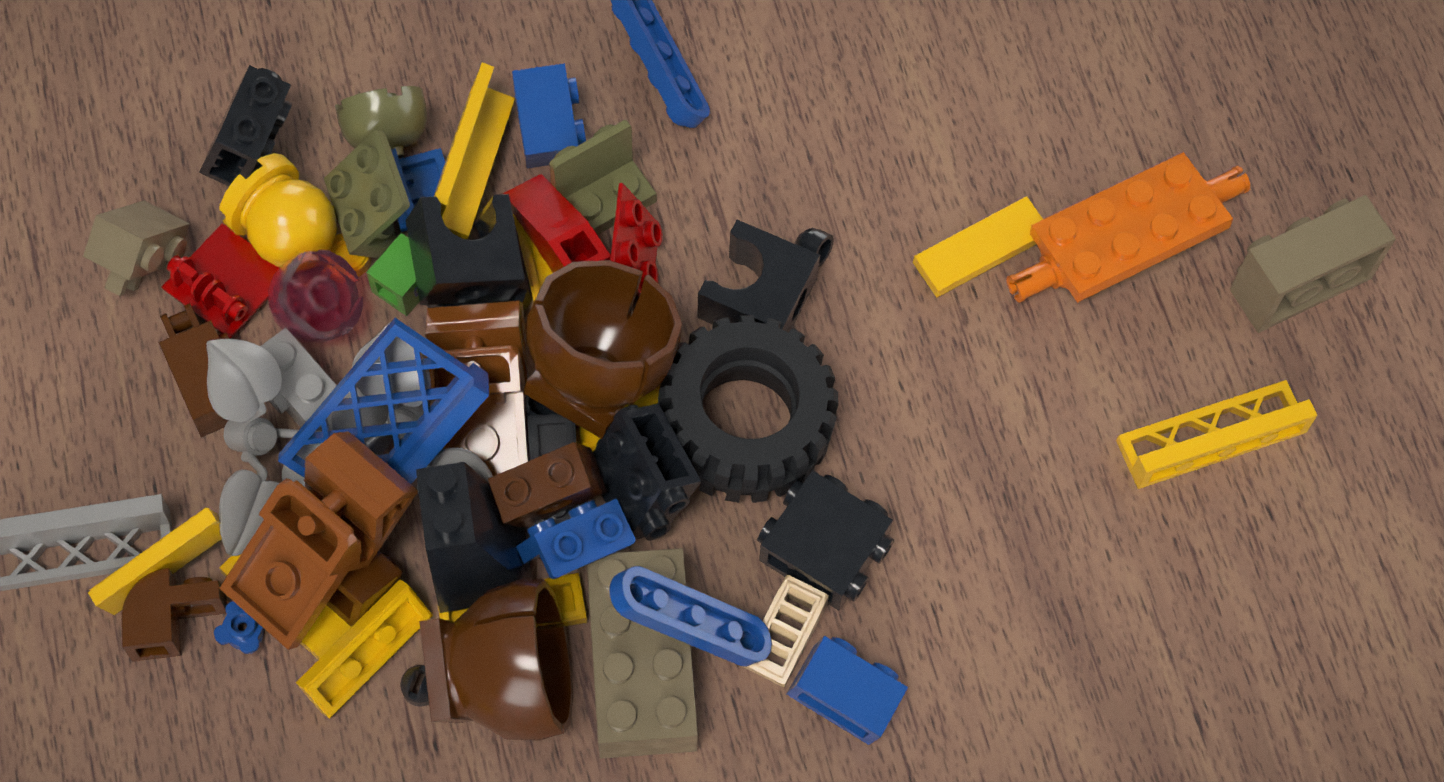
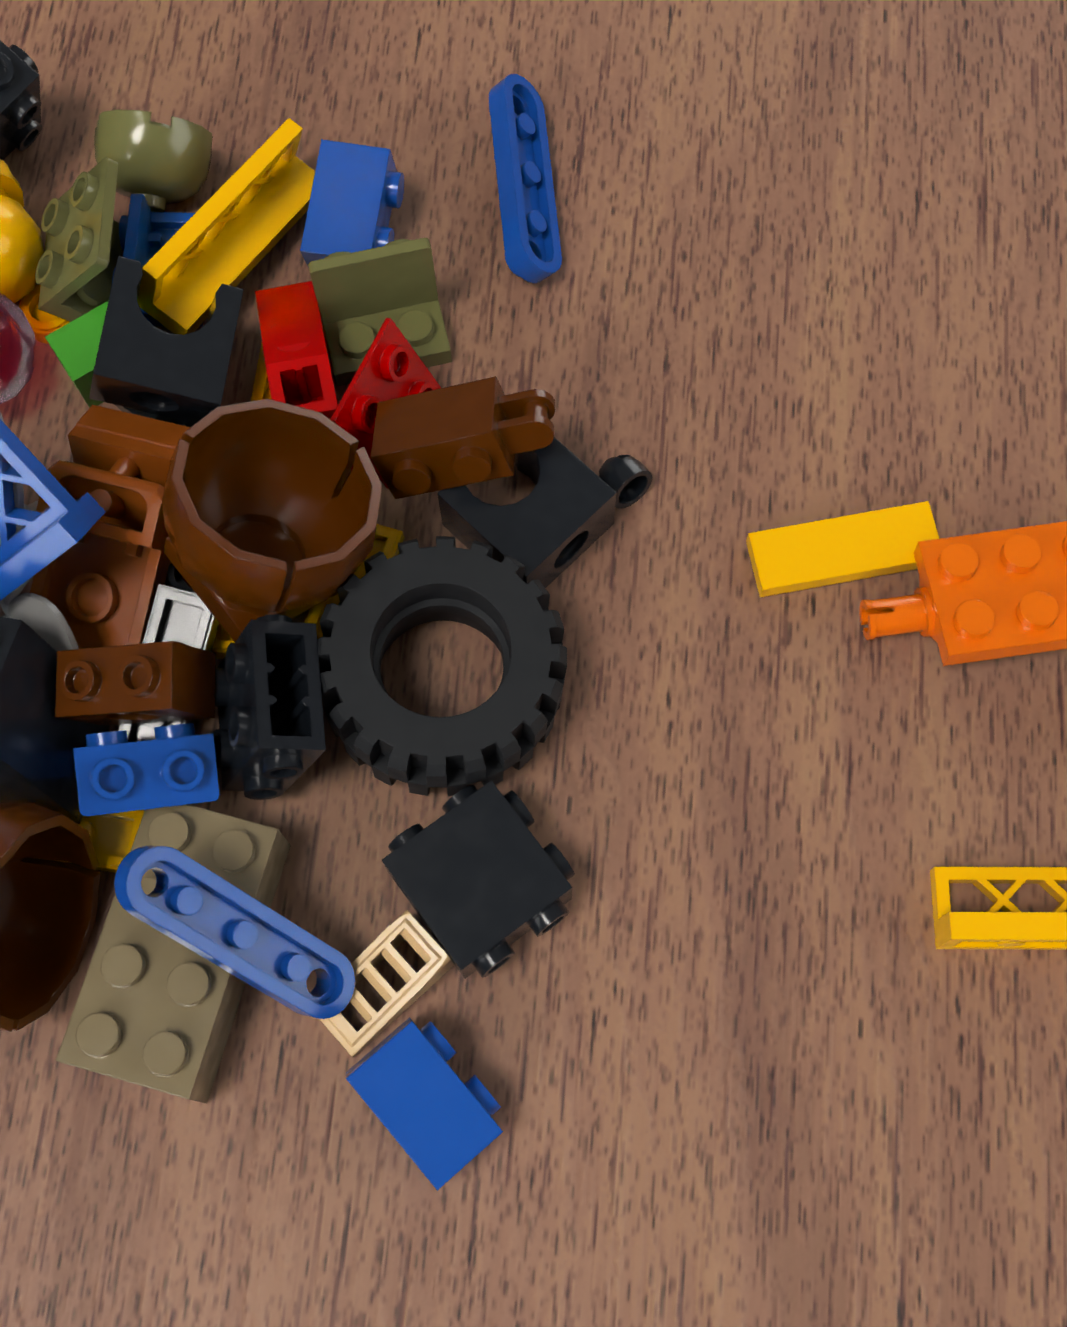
camera: 25 degrees right, 5 degrees up
(702, 247) = (457, 435): none -> reddish brown brick

